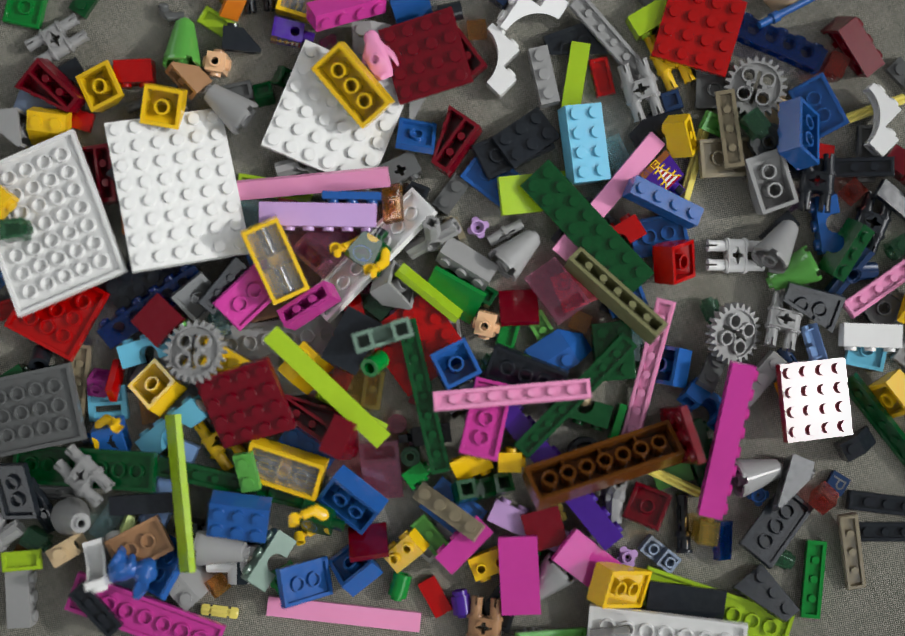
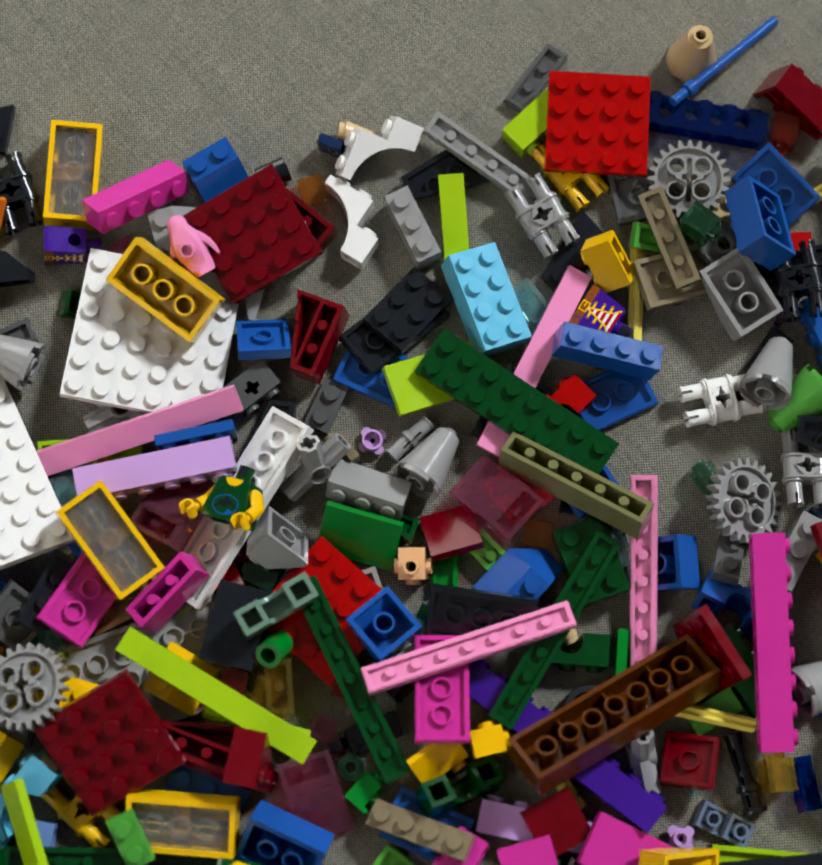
camera: 15 degrees left, 10 degrees down
(264, 94) = (50, 332): dark green slope -> none
(392, 204) = (251, 432): clear orange plate -> none
(428, 292) = (325, 539): lime tile -> none
(601, 77) = (488, 212): red tile -> none
(671, 101) = (585, 221): dark blue tile -> none
(674, 261) = (641, 425): red slope -> none

